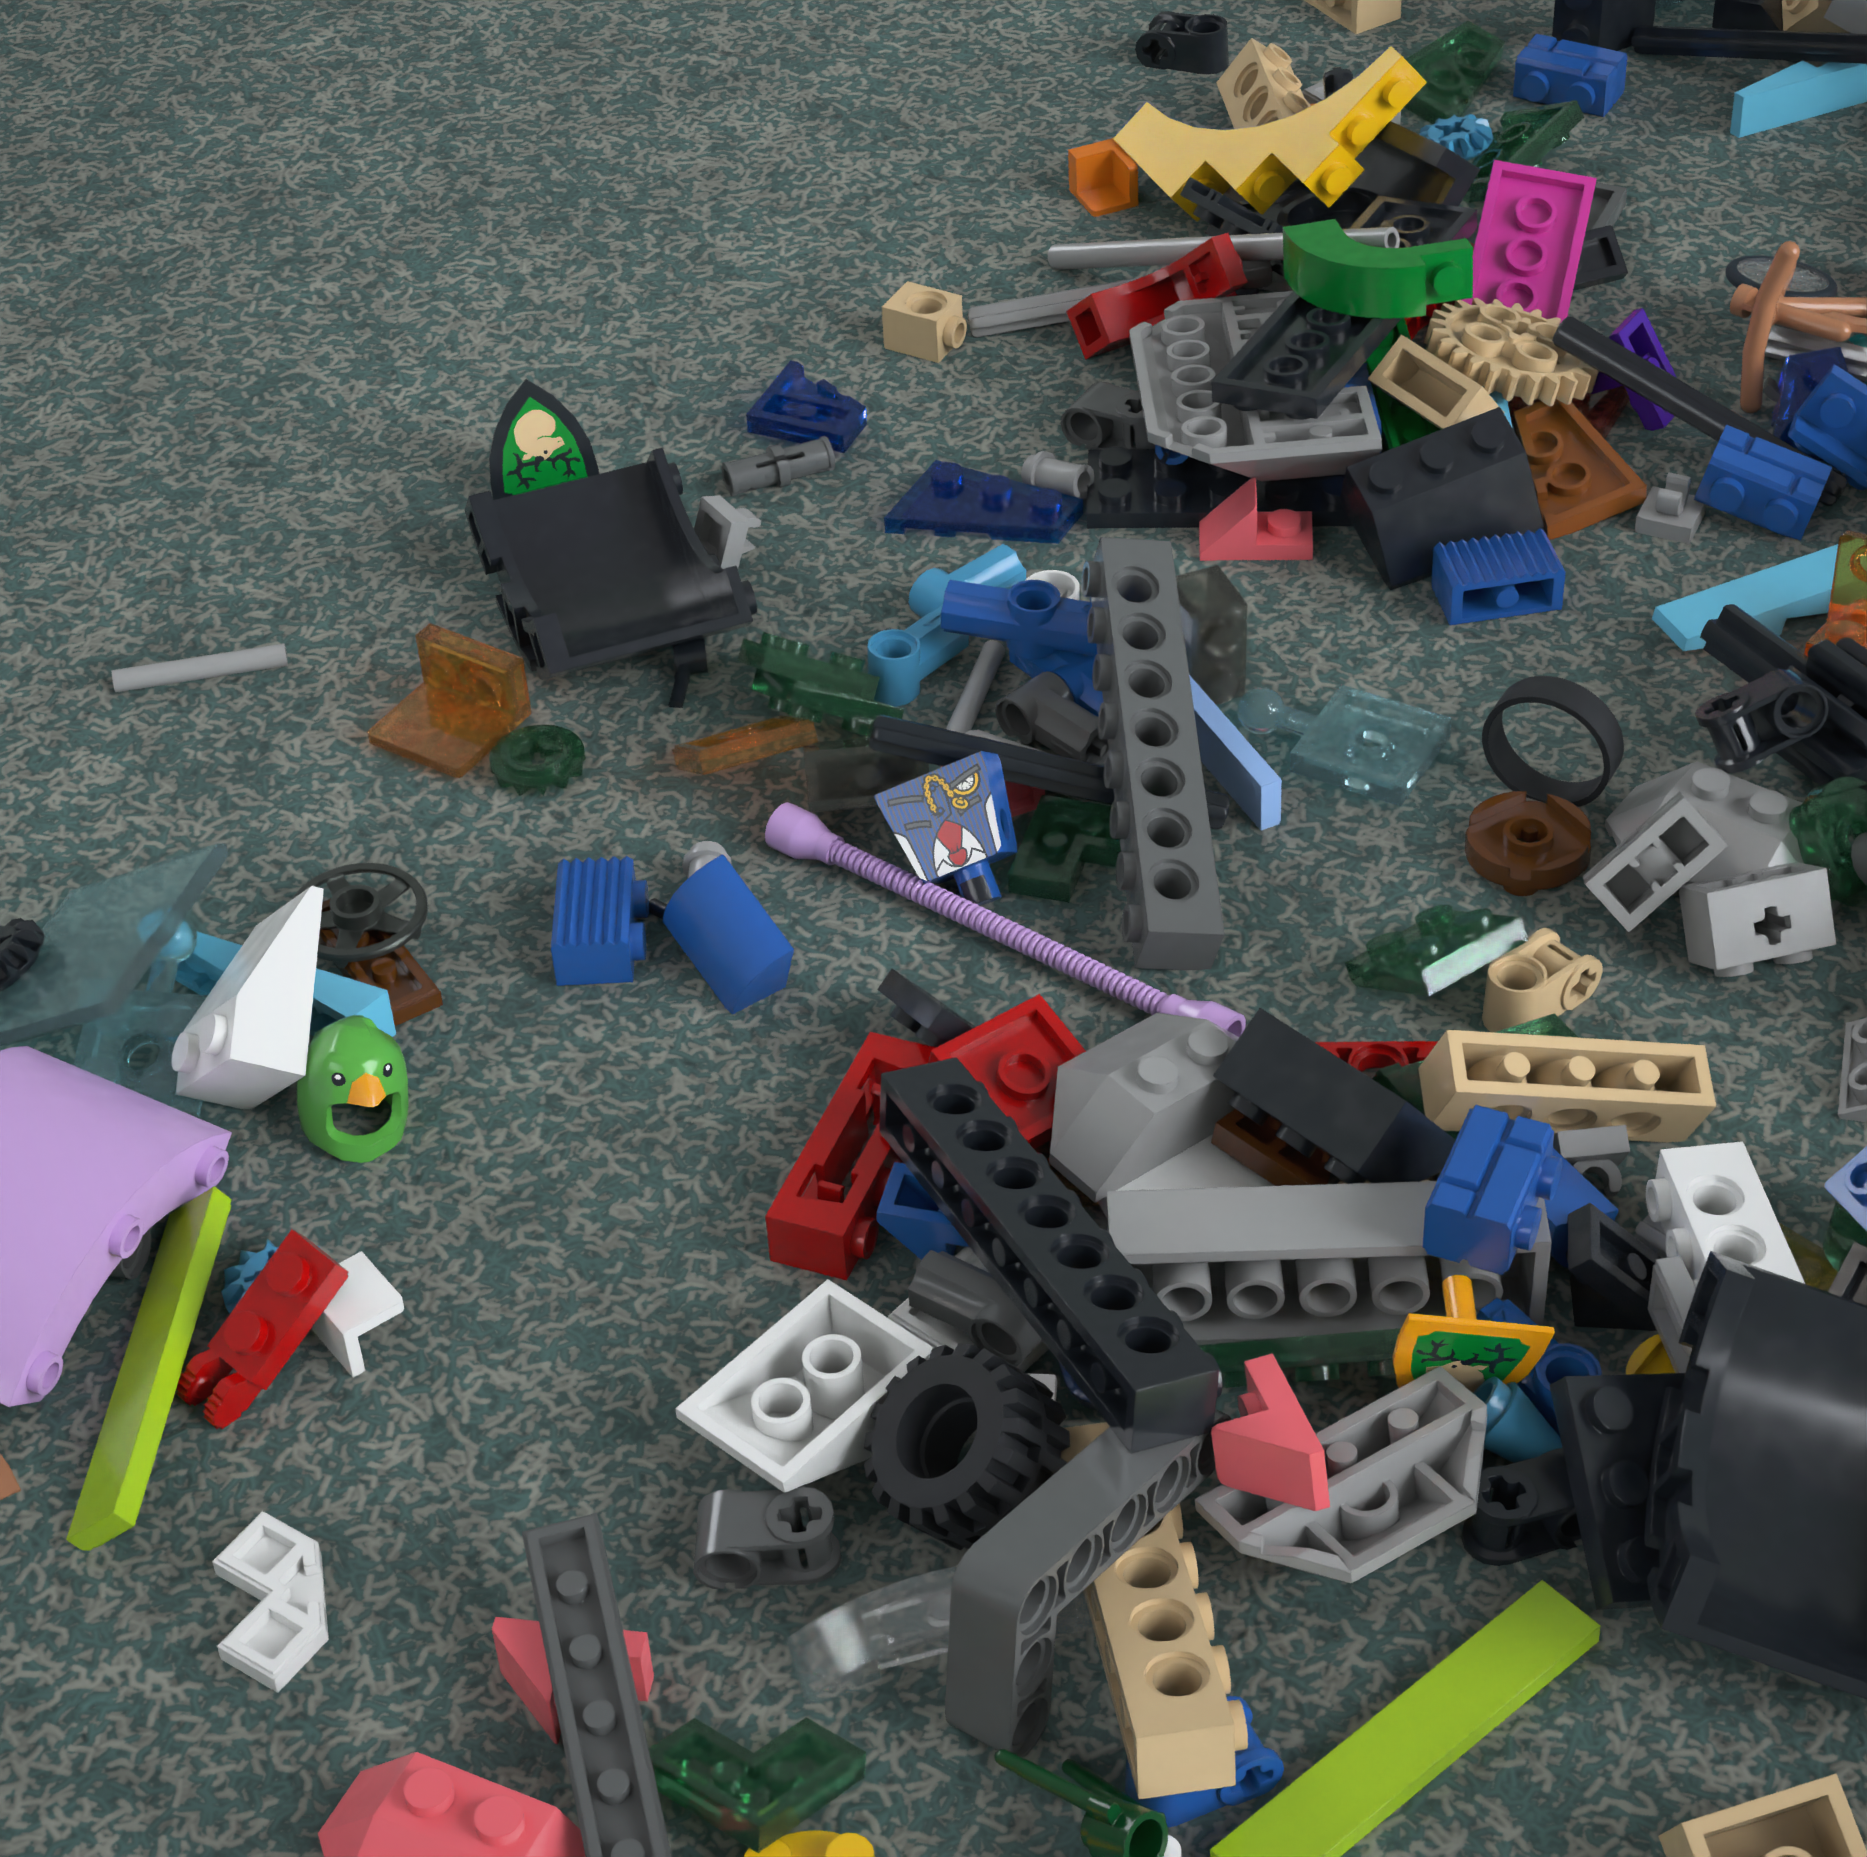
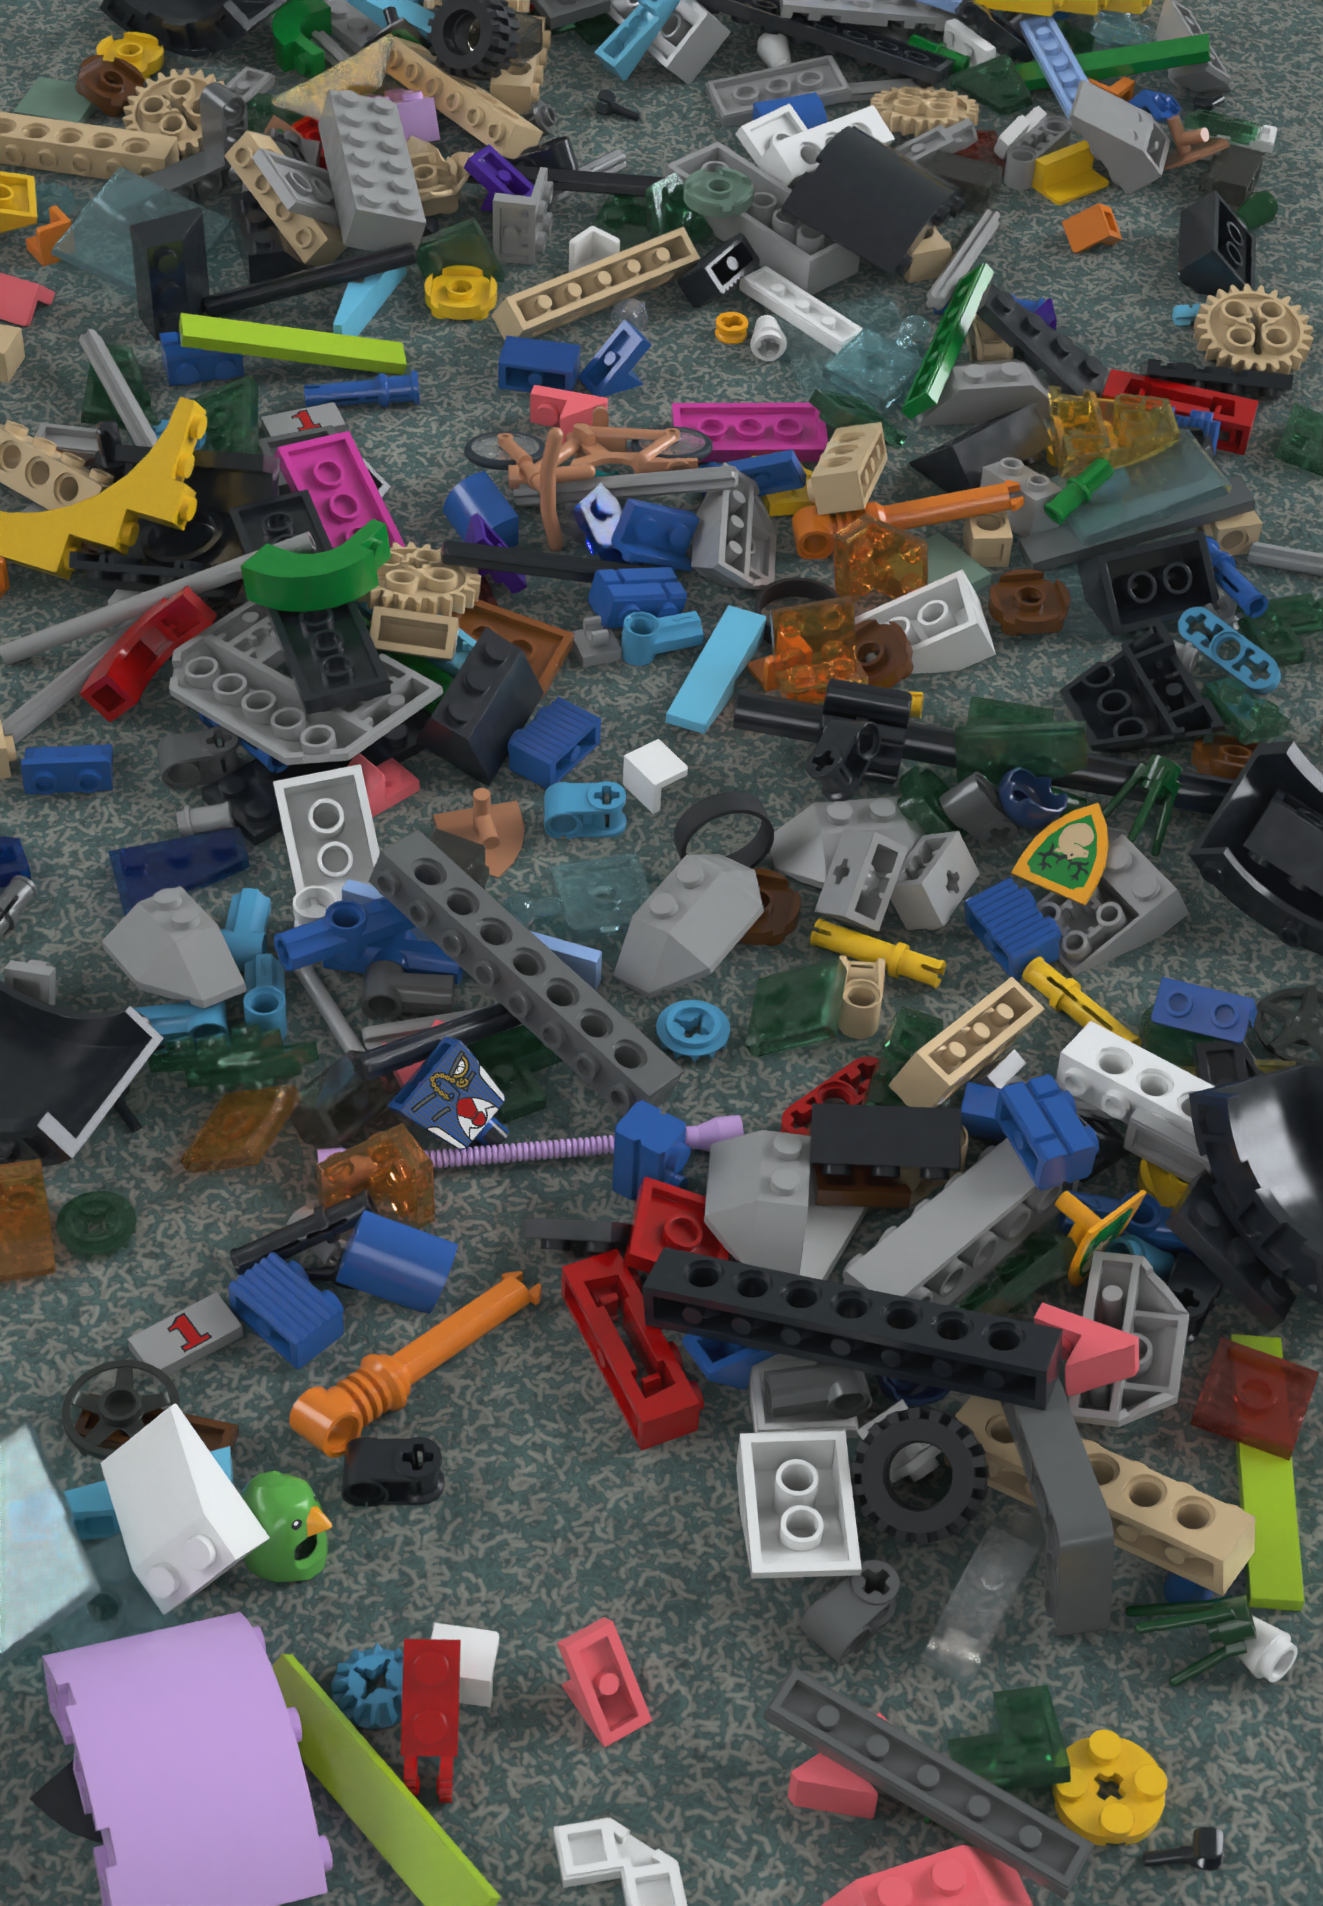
camera: 50 degrees left, 5 degrees up
(449, 1417) = (603, 1682): none -> coral slope
(492, 895) = (186, 1336): none -> light grey tile
(509, 1116) = (388, 1472): none -> black piece
(602, 1033) = (384, 1381): none -> orange piece
(745, 858) = (322, 1226): none -> black pin
(793, 847) = (387, 1166): none -> clear orange bracket
(840, 632) = (186, 1019): none -> dark azure piece
(867, 558) = (175, 950): none -> light grey wedge
(989, 375) = (67, 769): none -> blue bracket
(1083, 976) = (648, 1147): none -> blue brick
(1158, 502) = (328, 828): none -> white slope
(1320, 901) = (685, 1016): none -> dark azure gear
(1326, 631) = (495, 826): none -> nougat shield
(1418, 799) = (688, 924): none -> light grey wedge
(1436, 65) = (117, 389): none -> light grey axle
(1444, 651) = (581, 810): none -> dark azure piece
(1475, 1658) = (1254, 1398): none -> clear red tile
(1570, 646) = (649, 770): none -> white panel
(1624, 975) = (898, 958): none -> yellow pin
(1640, 182) = (303, 419): none -> light grey tile
(1671, 96) = (291, 344): none -> lime tile
(1695, 334) = (481, 495): none -> blue brick
(1726, 180) = (379, 390): none -> blue pin
(1732, 529) = (646, 635): none -> dark azure piece
(1791, 1128) = (1067, 996): none -> yellow pin
(1803, 1020) = (1012, 926): none -> blue brick

